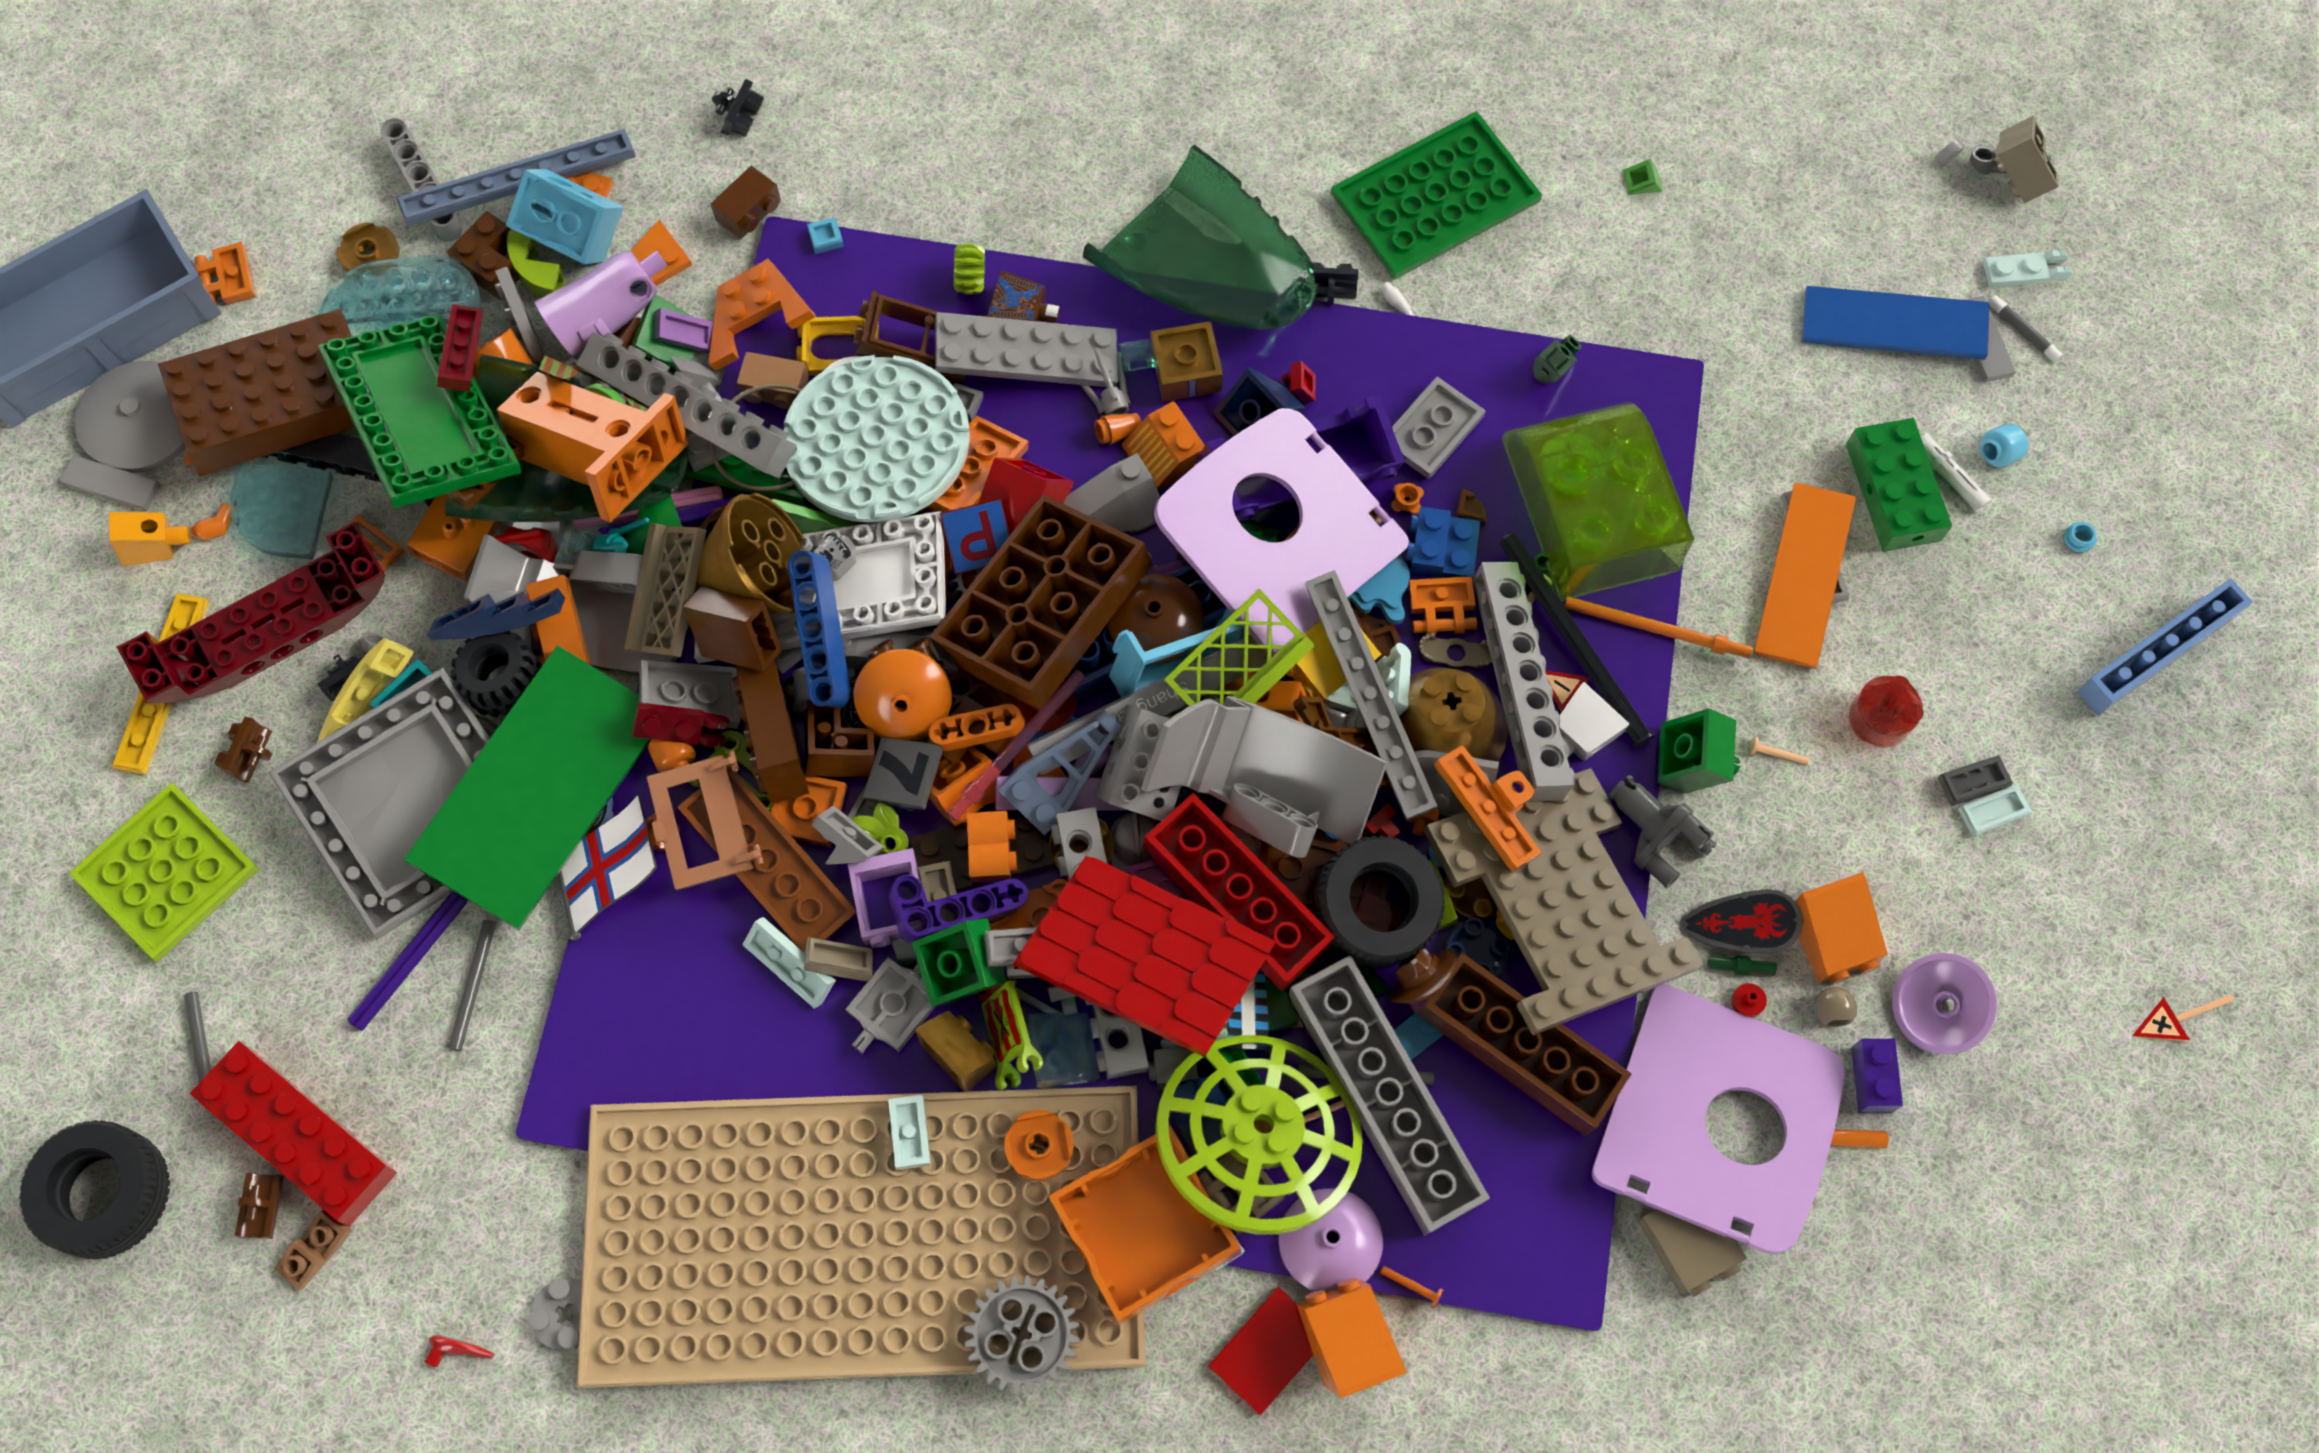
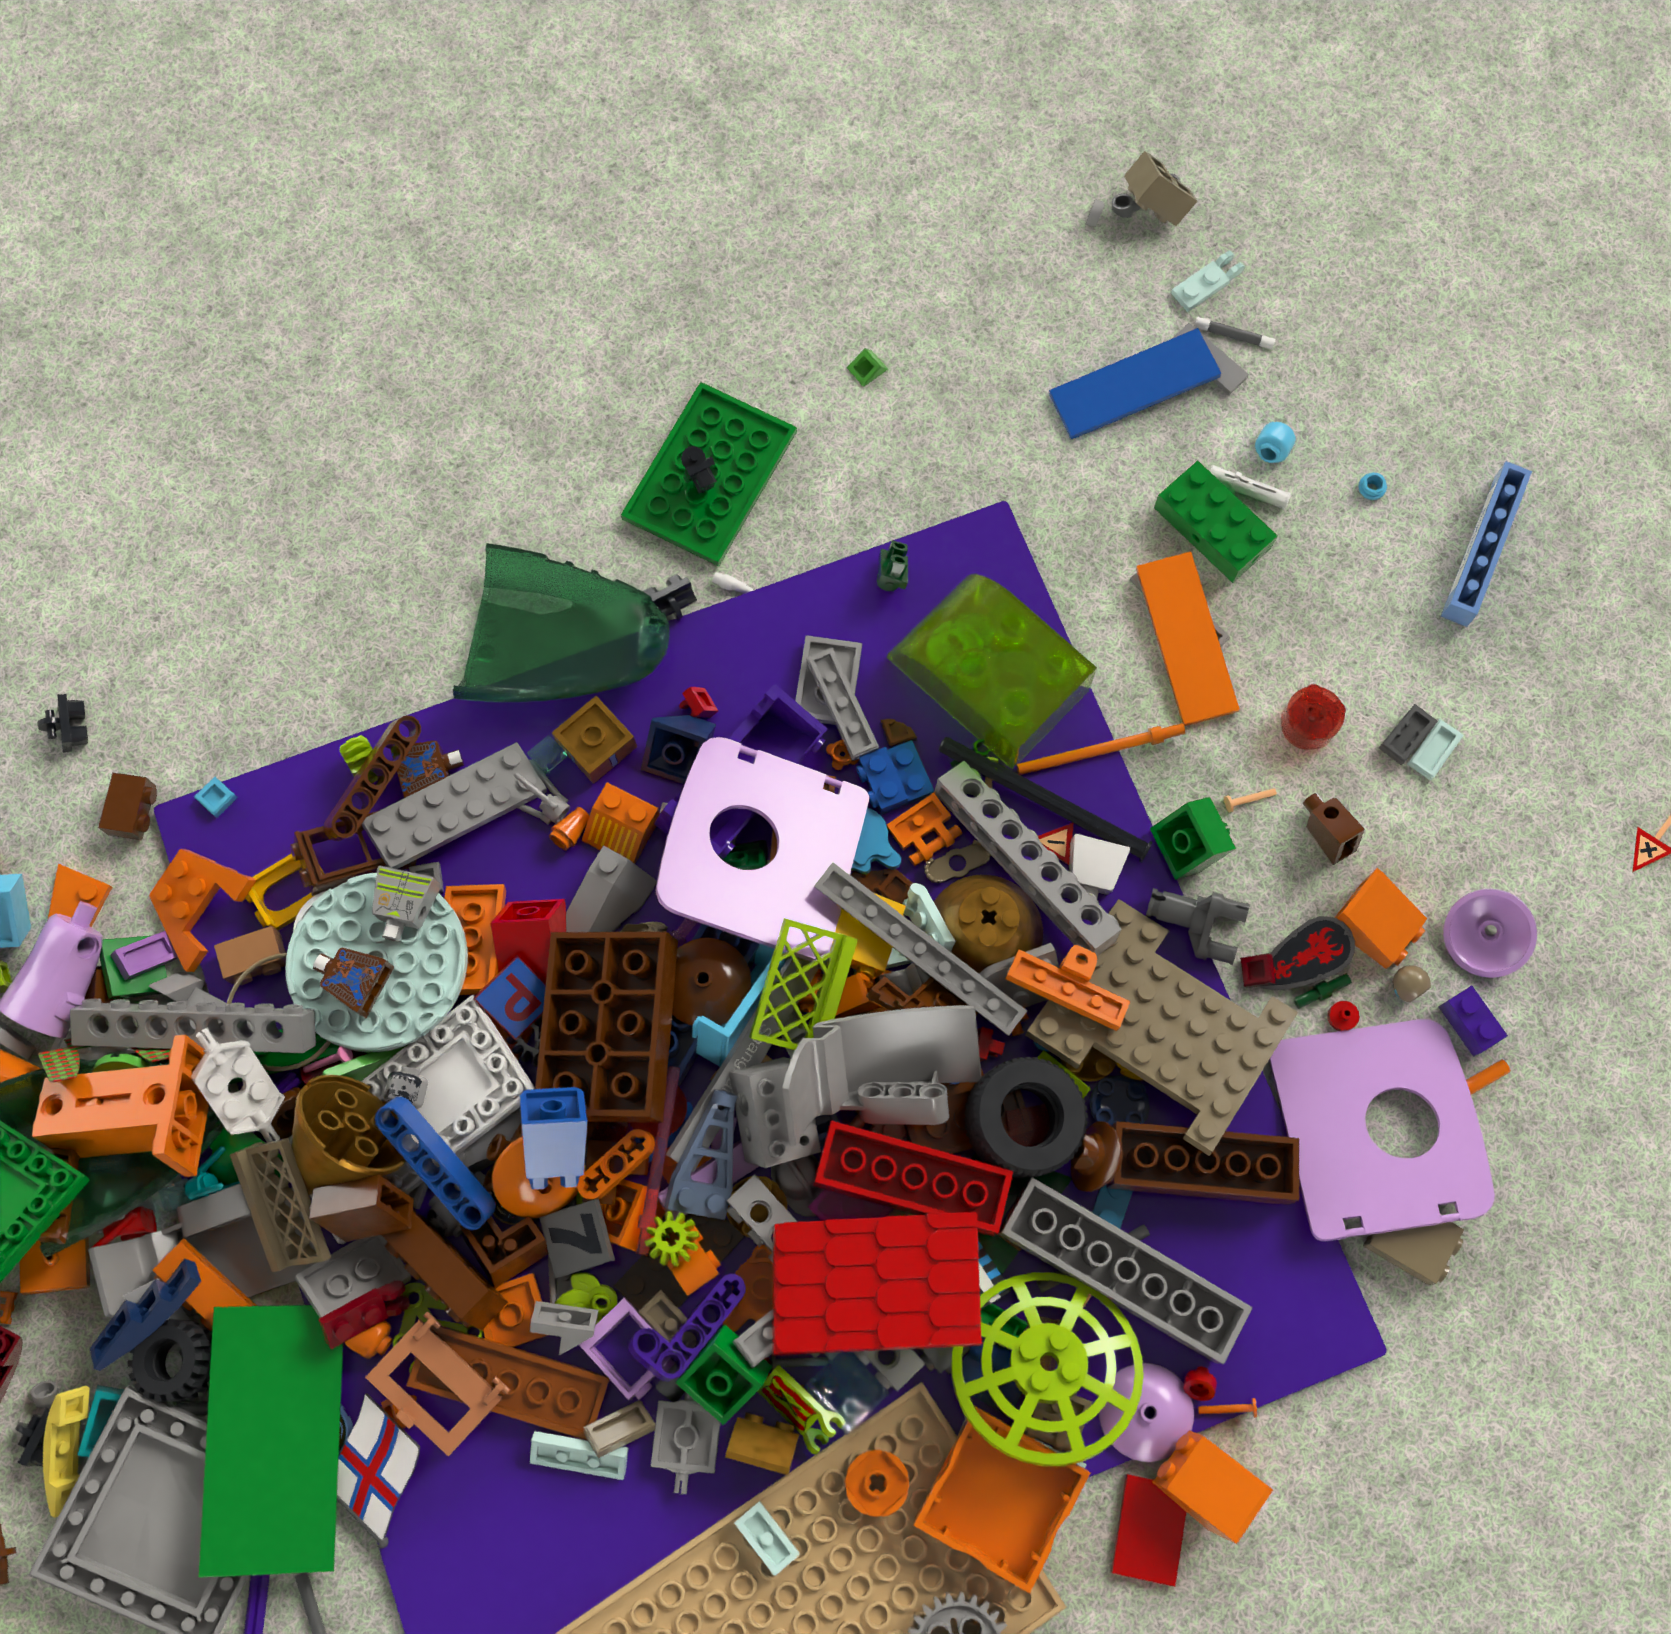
camera: 30 degrees left, 5 degrees up
(687, 442) = (256, 1101): none -> white plate
(797, 498) = (343, 1054): none -> bright pink pin
(847, 436) = (354, 978): none -> torso
(930, 394) = (402, 900): none -> light grey torso
(933, 659) = (553, 1135): none -> hips
(980, 275) = (360, 784): none -> reddish brown beam
(991, 825) = (663, 1248): none -> lime gear
(1397, 1244) = (1200, 1384): none -> red tile
(1426, 180) = (698, 469): none -> black hips
(1433, 452) = (842, 703): none -> light grey tile
(1688, 910) = (1258, 970): none -> dark red tile
(1844, 822) = (1333, 827): none -> reddish brown torso

